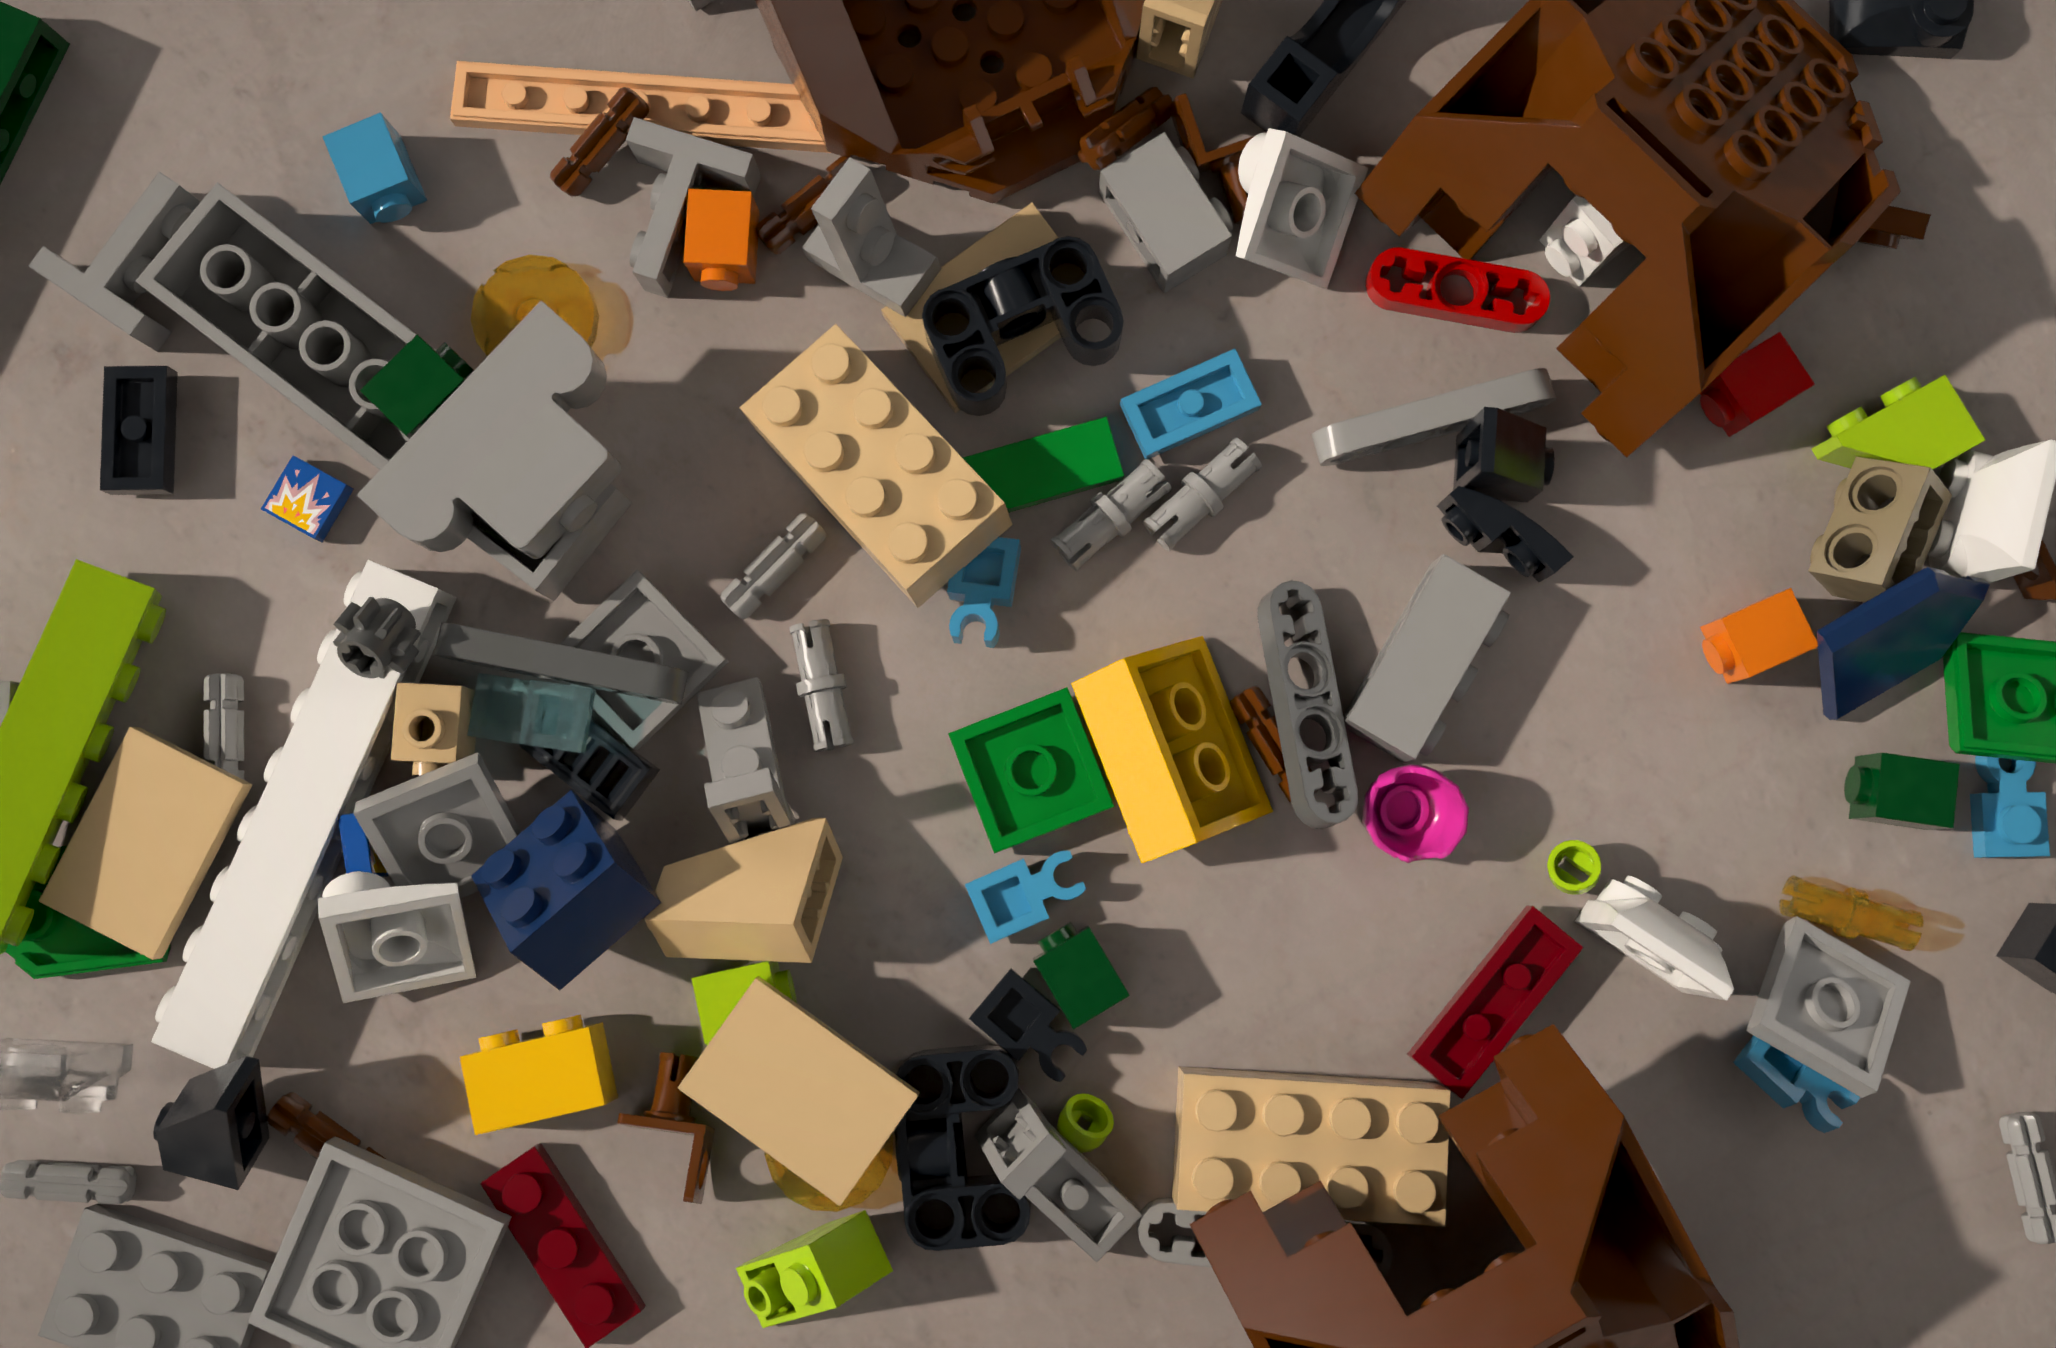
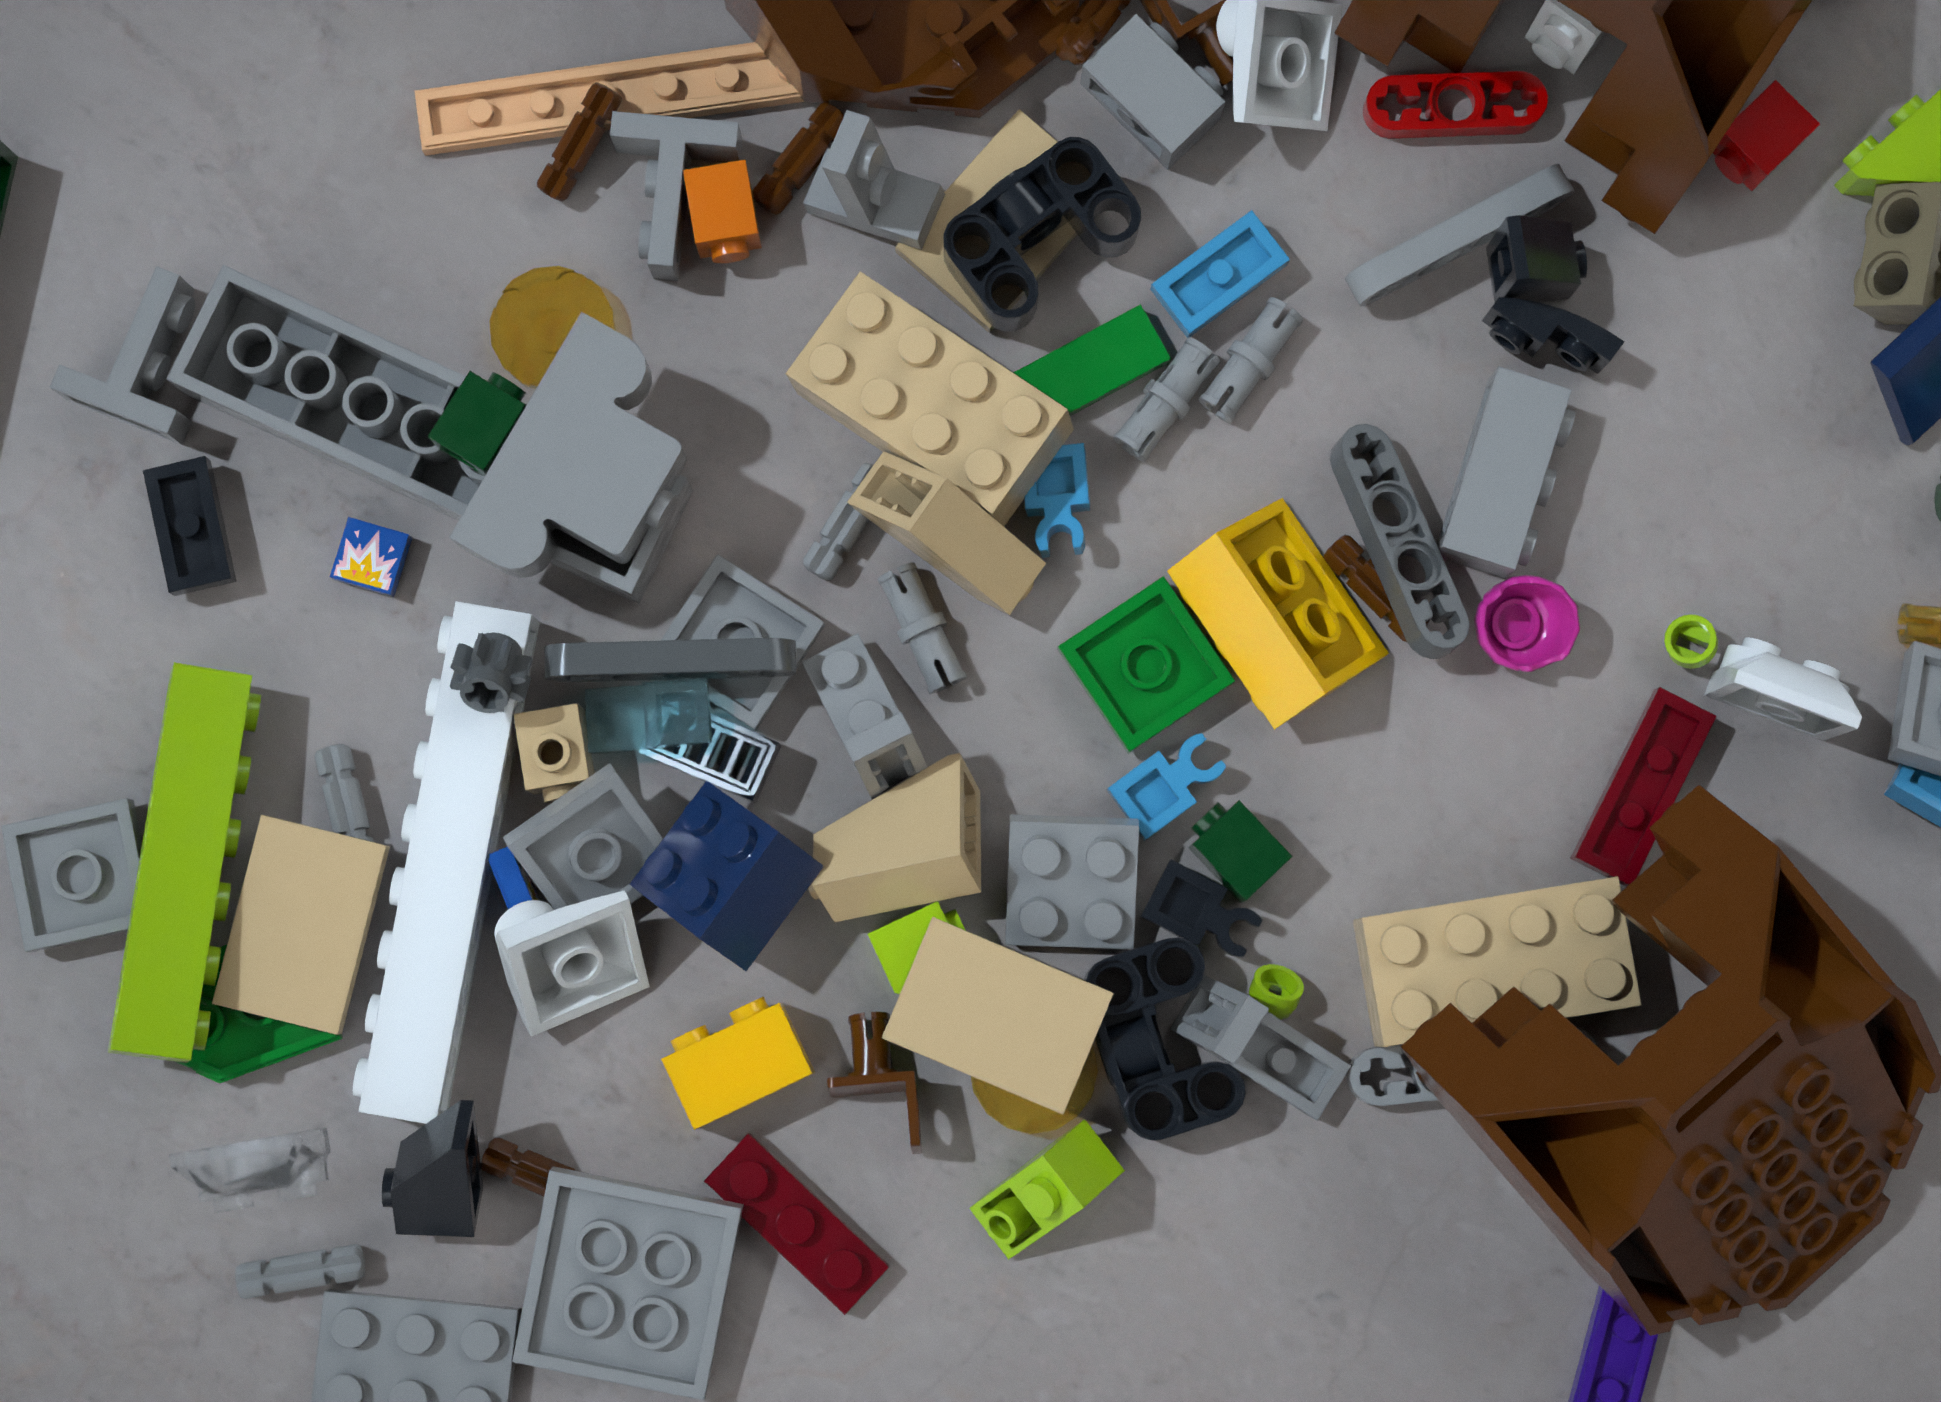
camera: 15 degrees left, 0 degrees up
(375, 169) = (363, 218): dark azure brick -> none
(865, 598) = (947, 531): none -> tan slope
(908, 968) = (1072, 881): none -> light grey plate
(1757, 637) = (1818, 380): orange brick -> none

